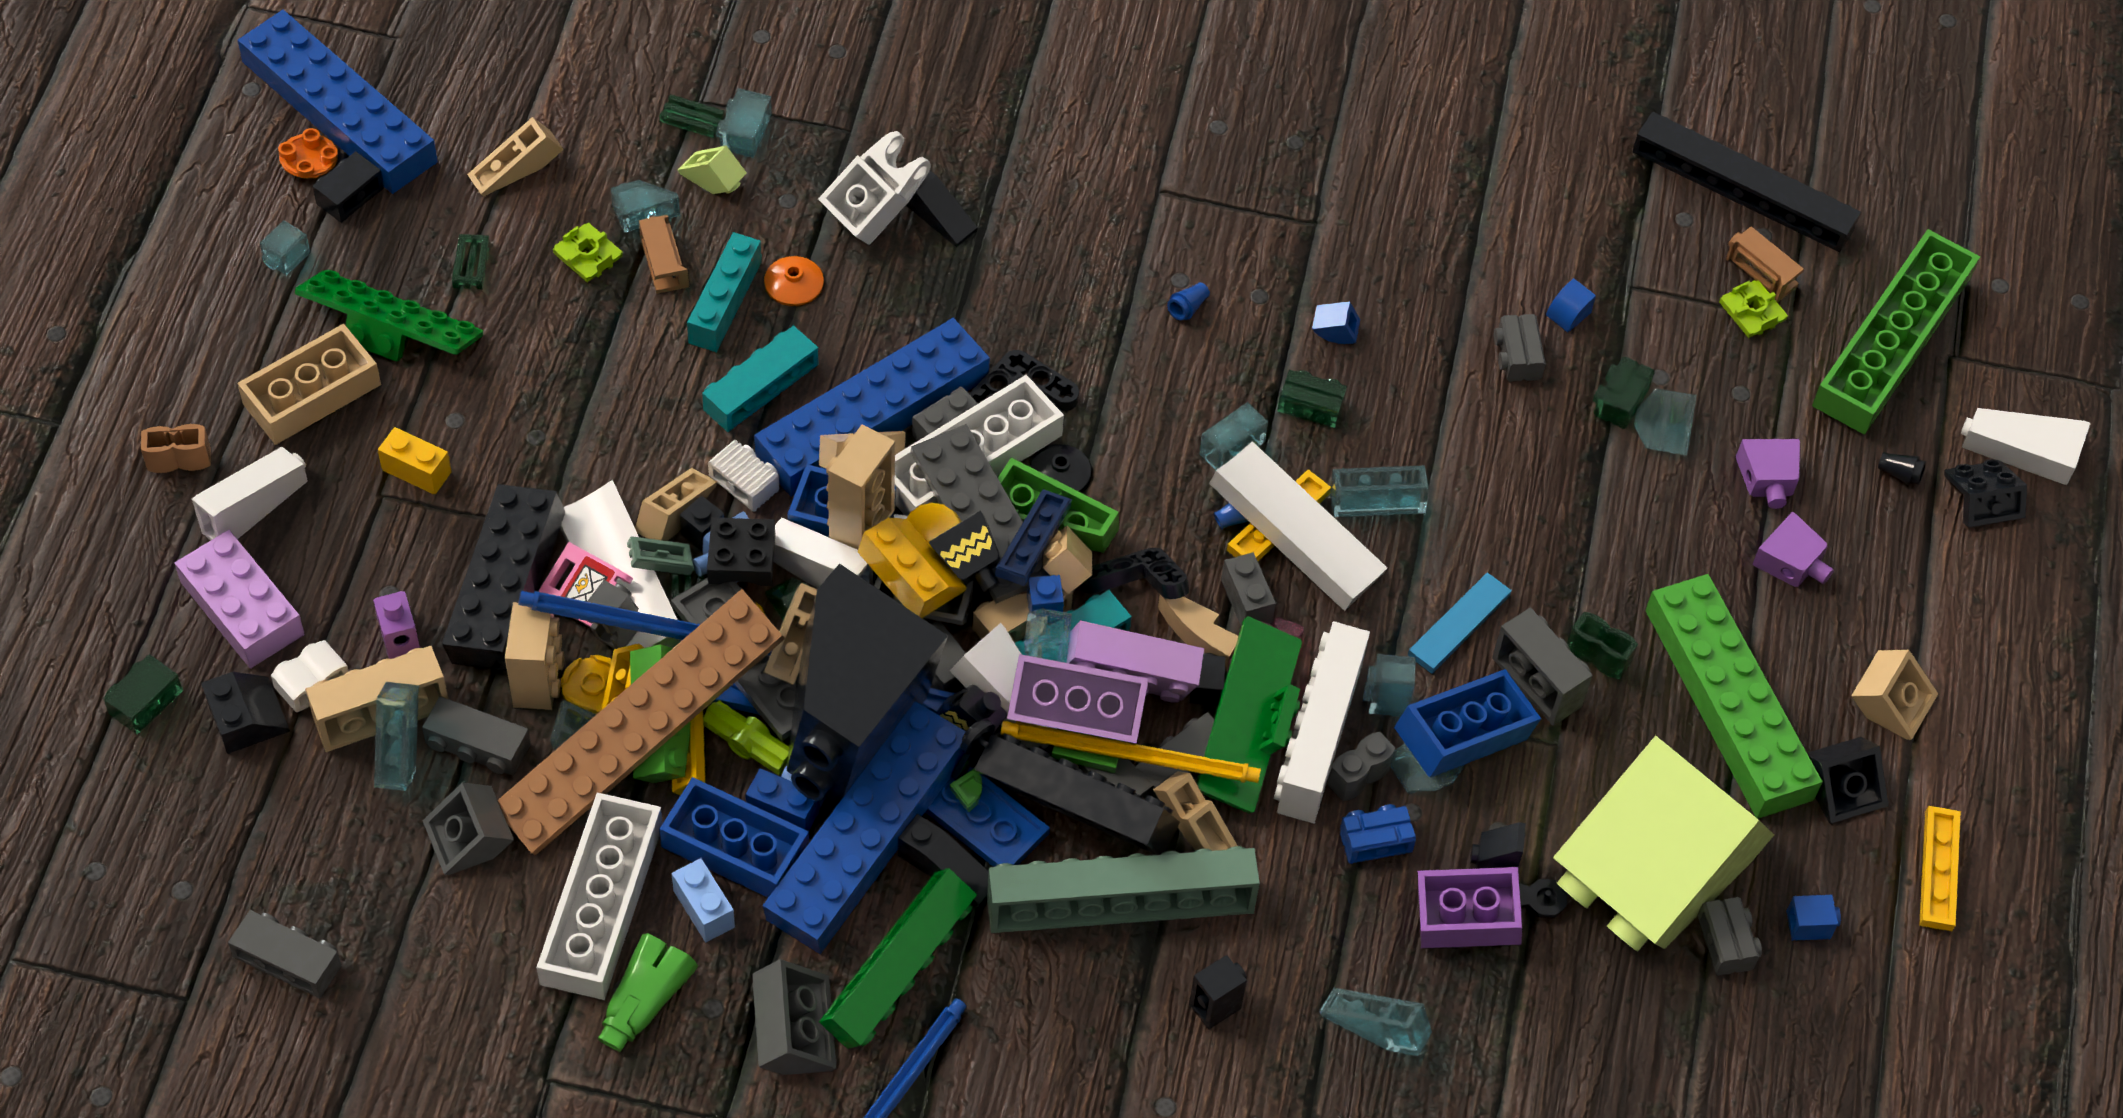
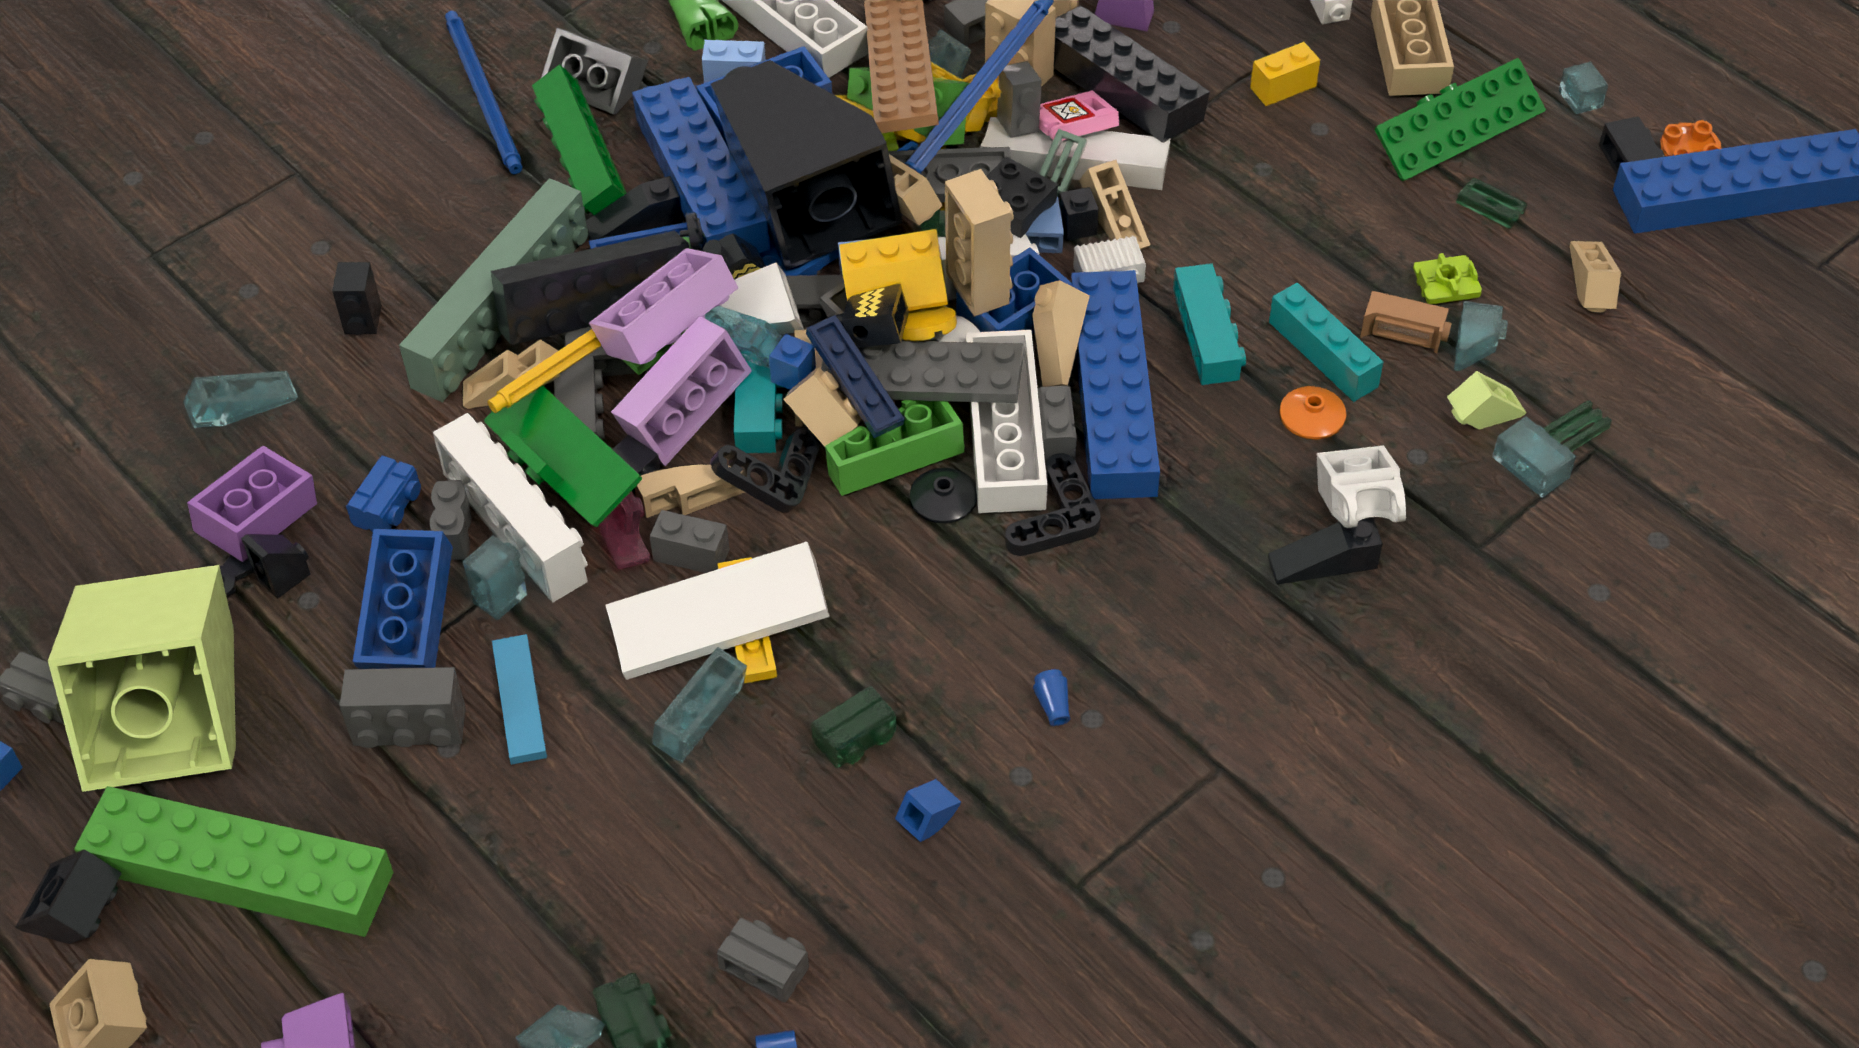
camera: 130 degrees right, 5 degrees down
(1232, 435) = (860, 630): clear light blue brick -> none
(1605, 647) = (378, 779): clear green brick -> none

